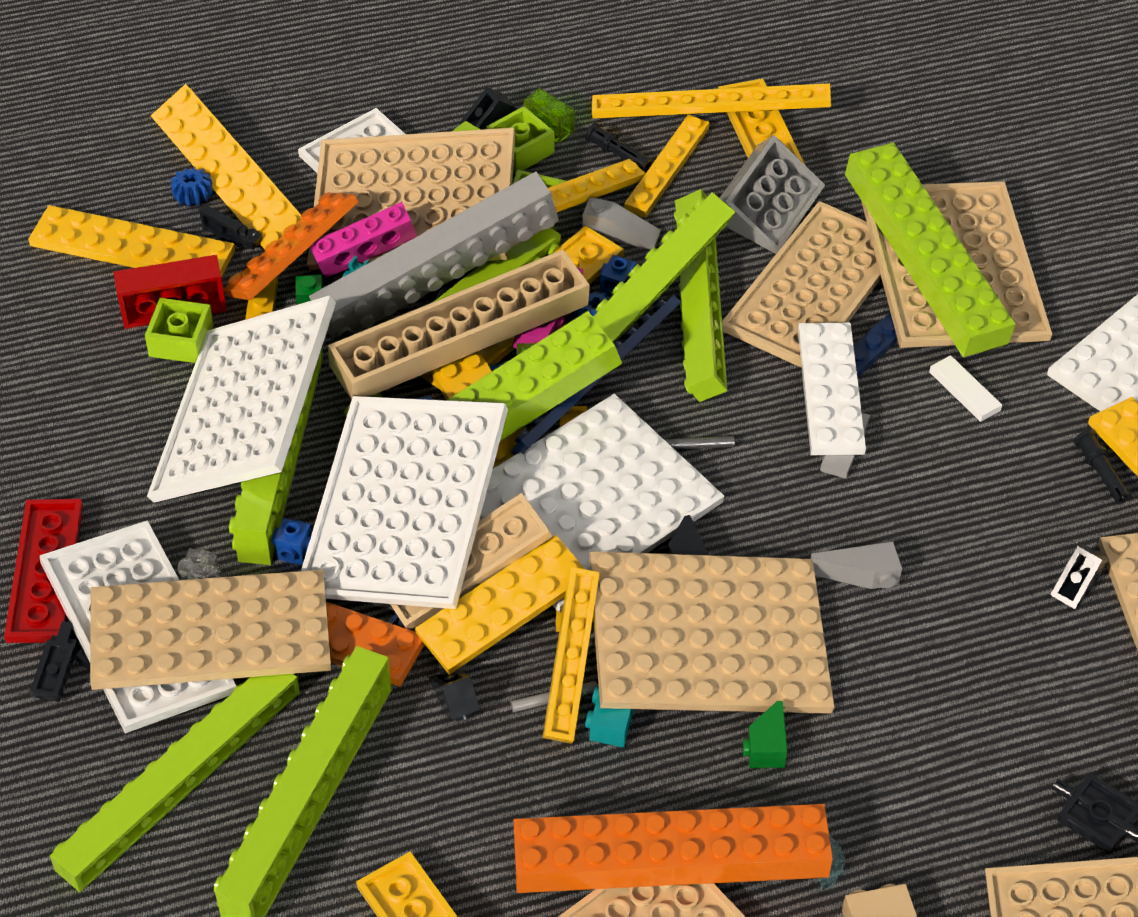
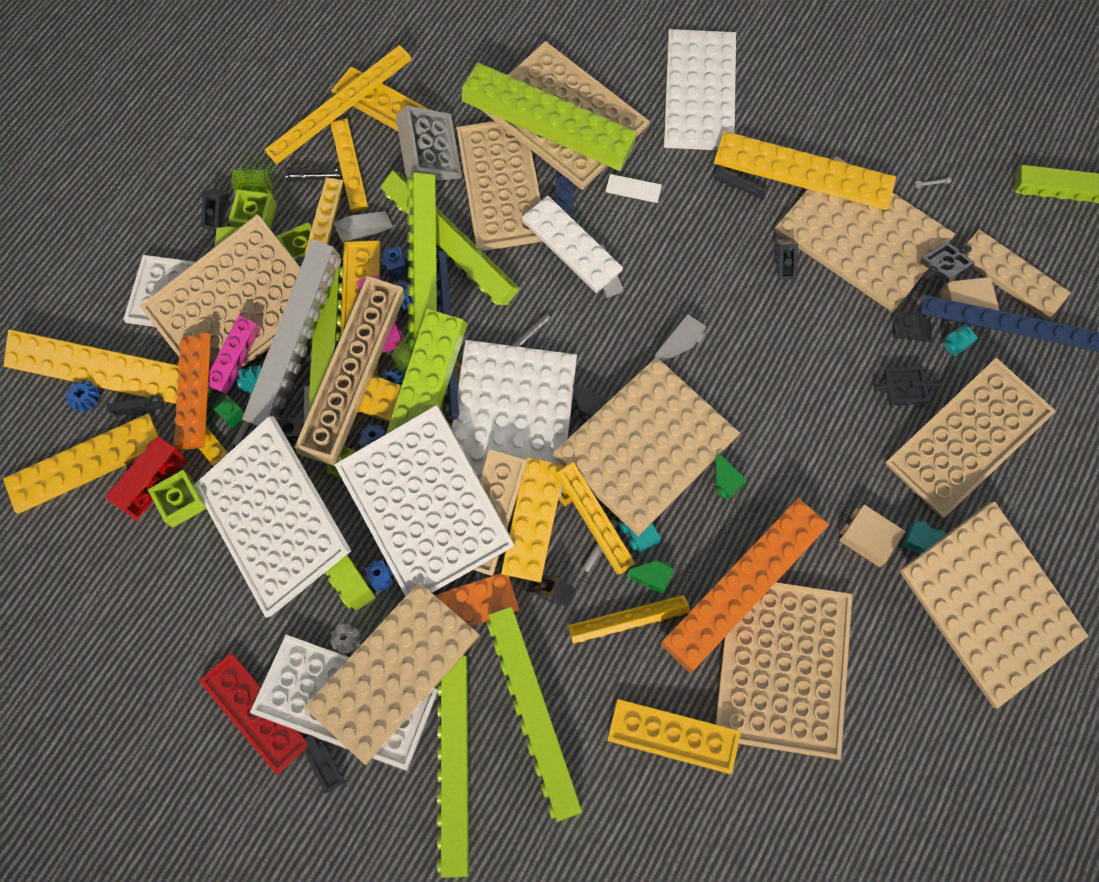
camera: 40 degrees left, 20 degrees up
(498, 783) = (628, 619): none -> yellow plate
(580, 766) = (652, 575): none -> green slope

